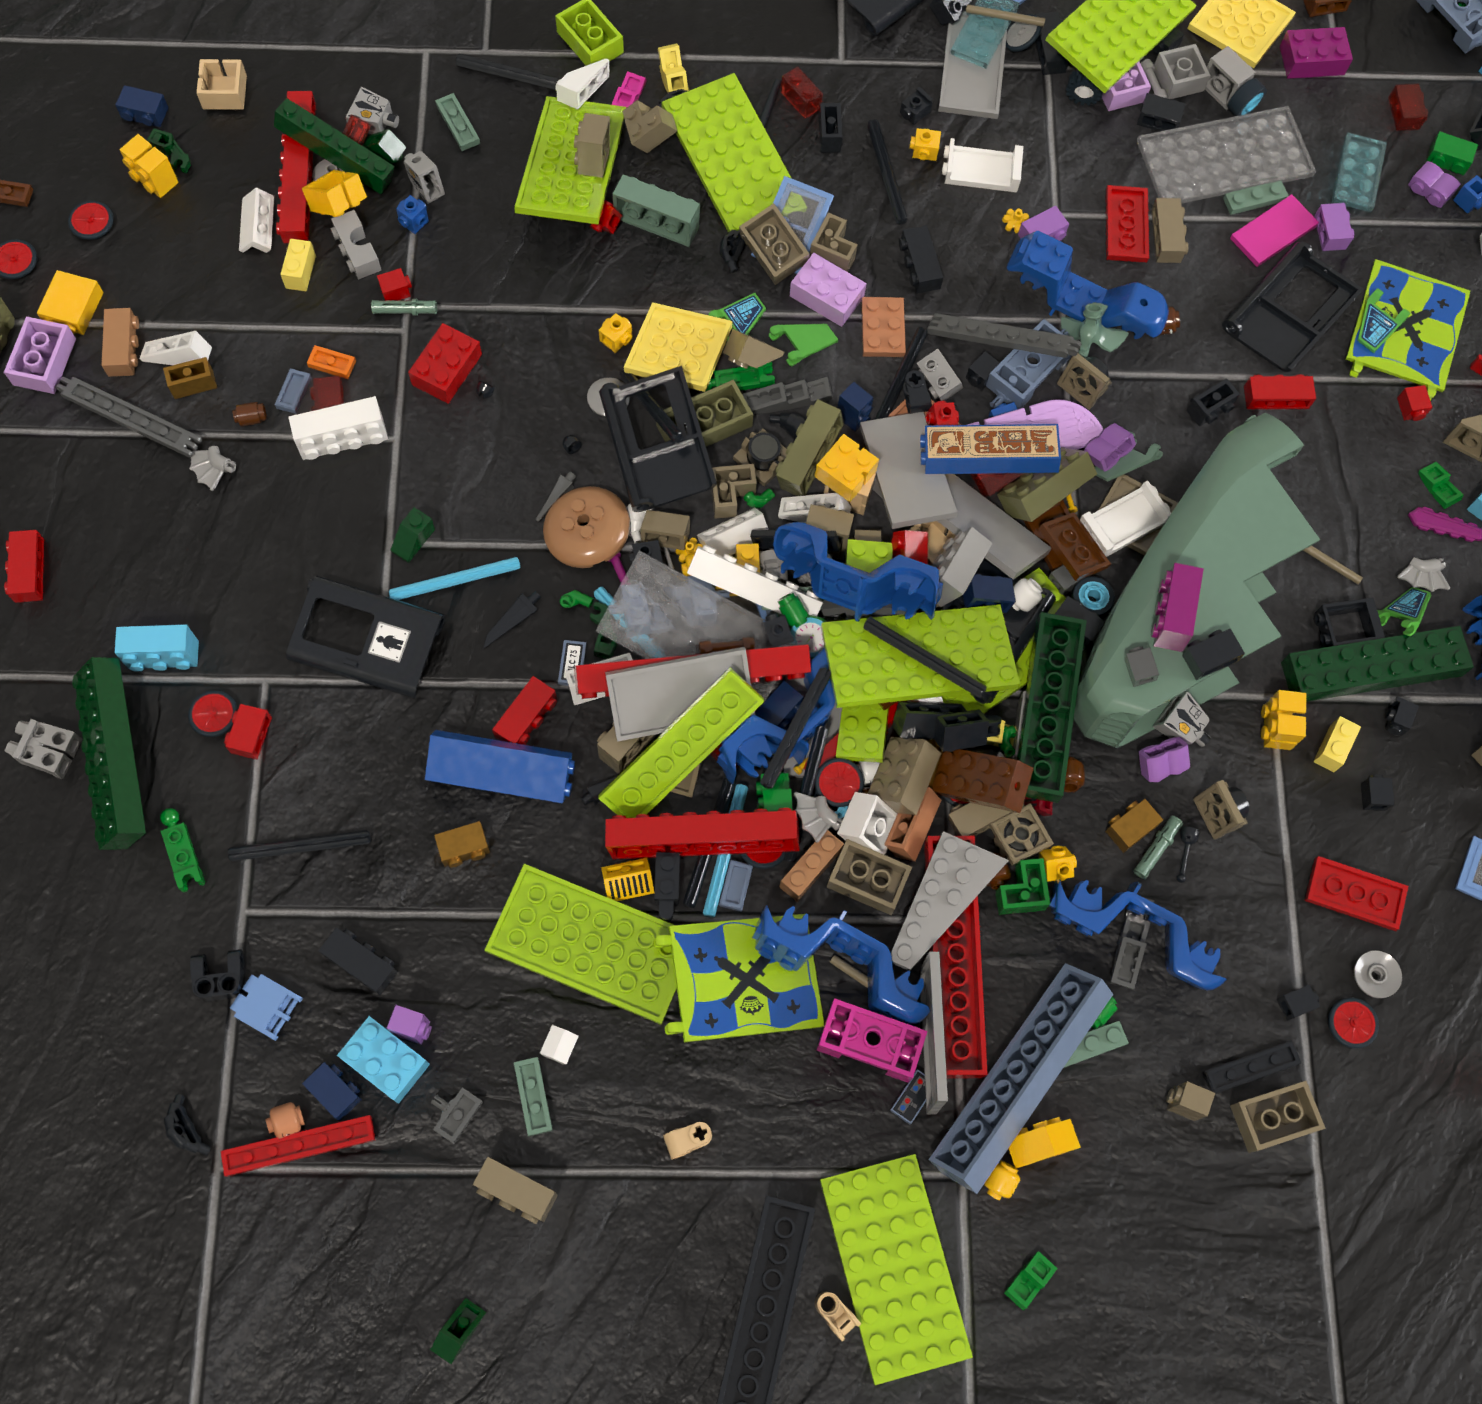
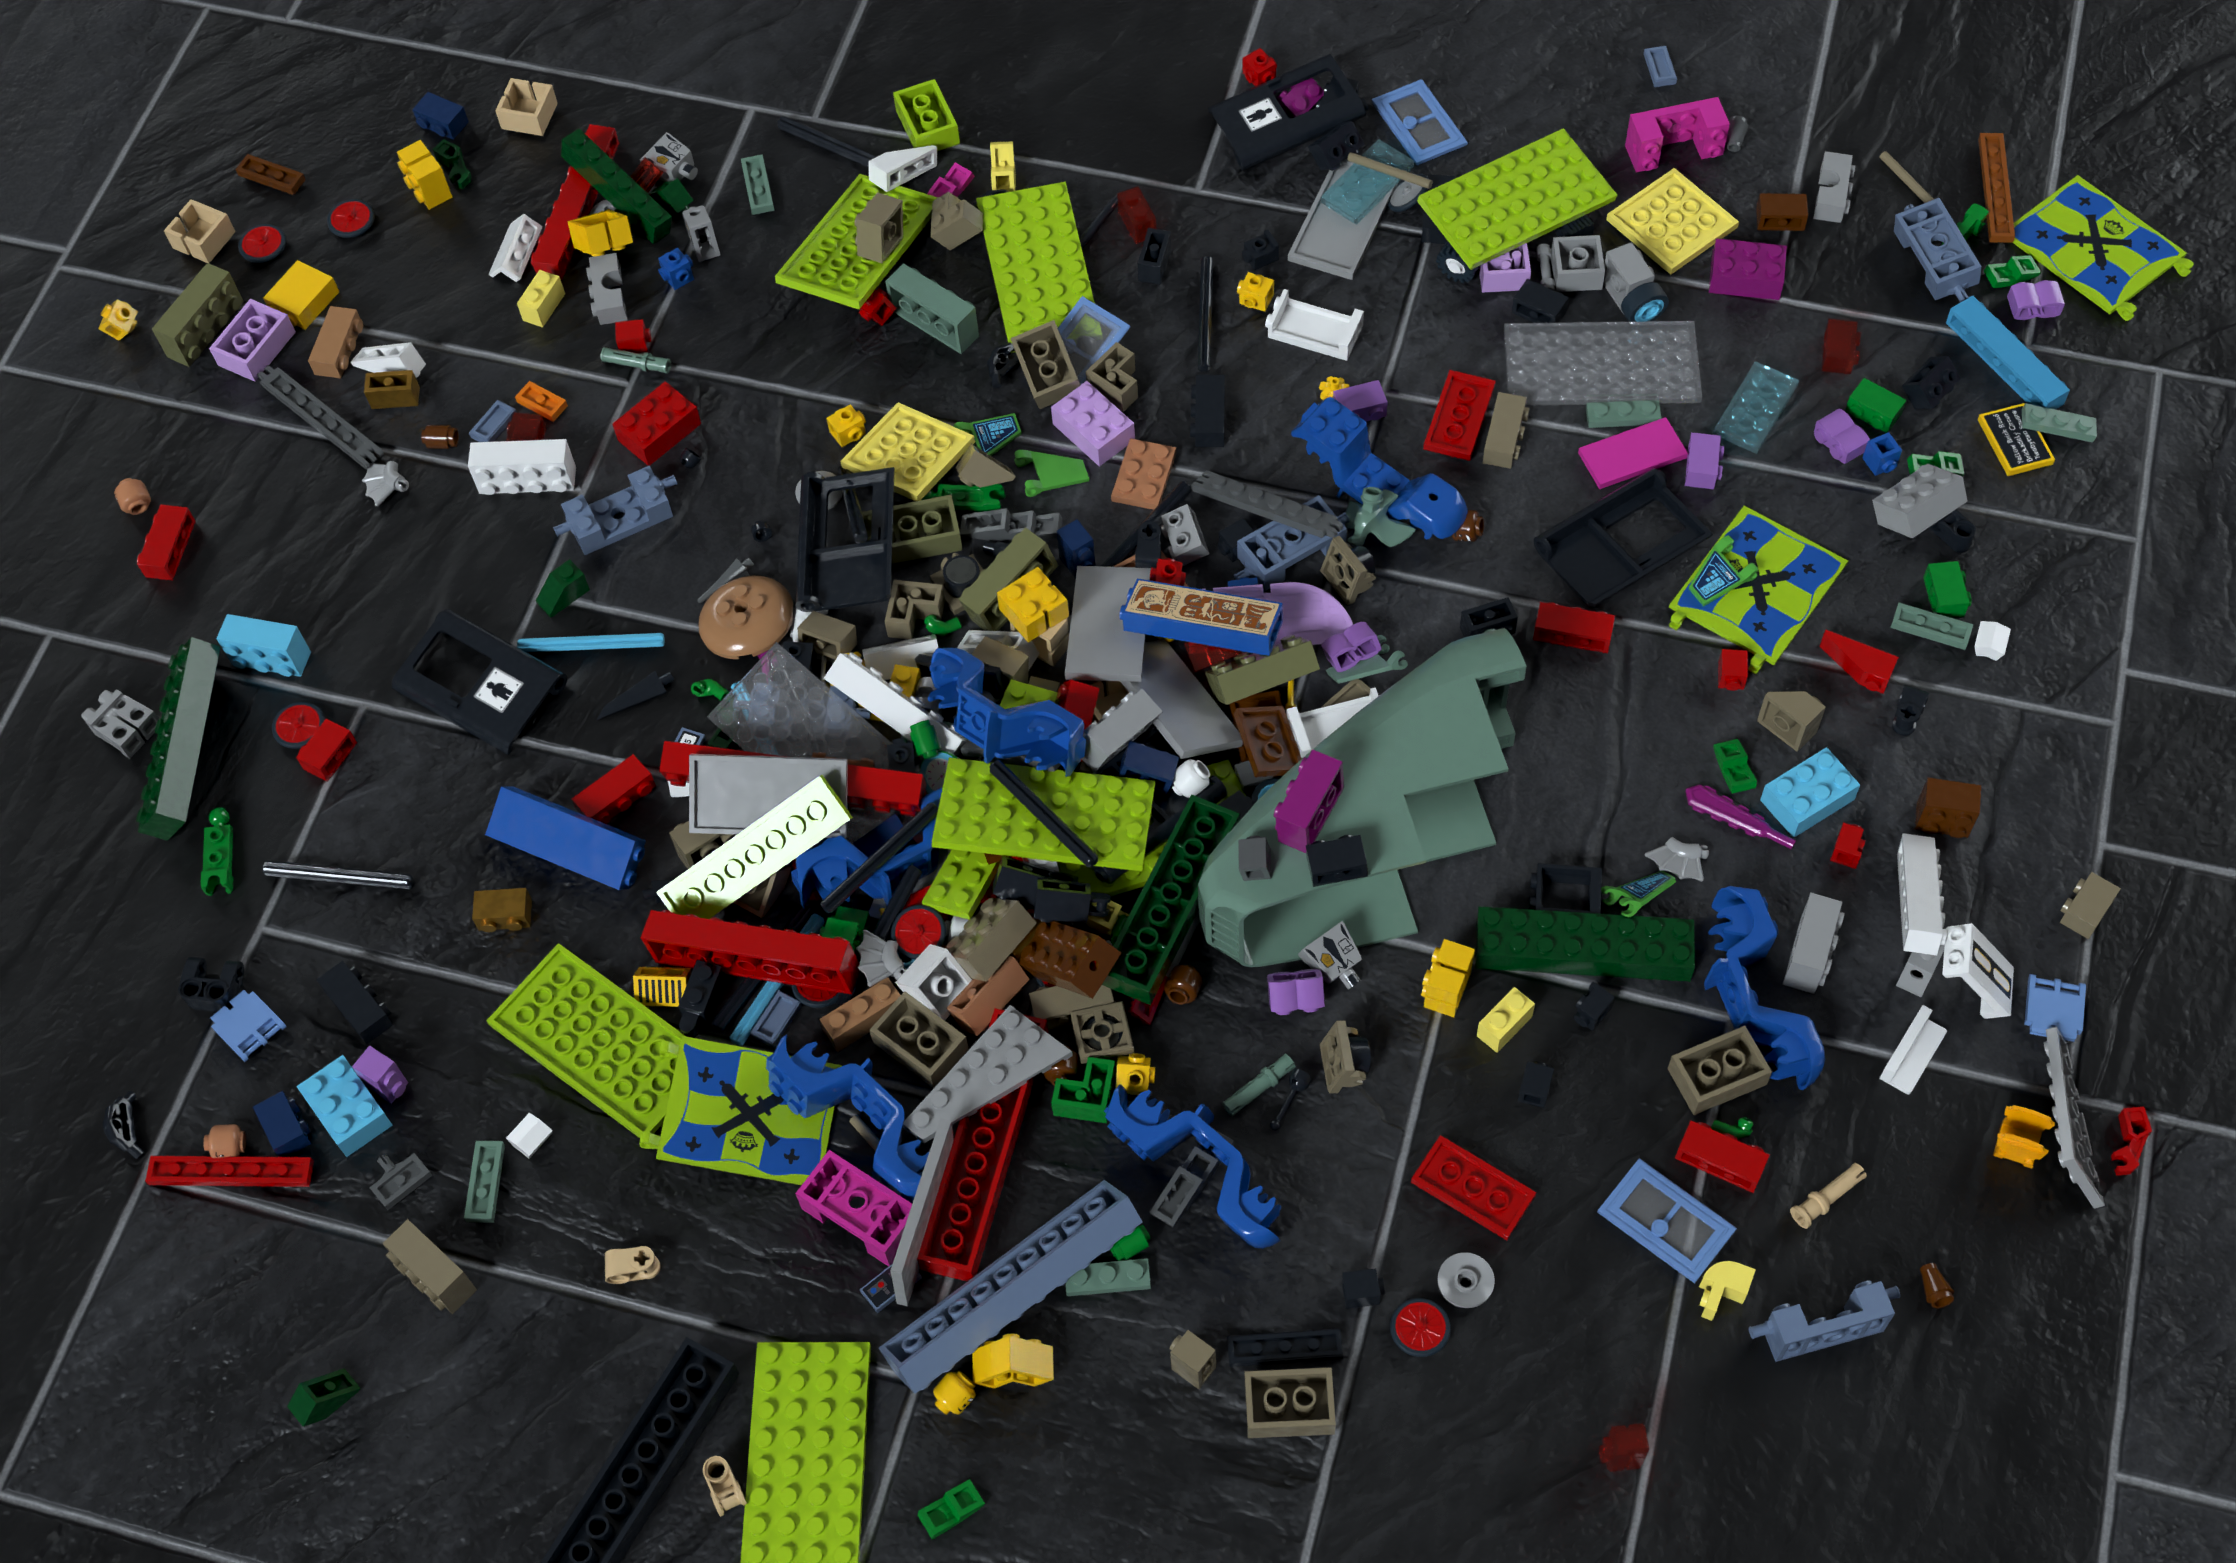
camera: 25 degrees right, 10 degrees down
(456, 438) = (641, 502): none -> sand blue brick
(1134, 825) = (1238, 1054): pearl gold brick -> none
(1330, 562) = (1564, 816): dark tan bar -> none

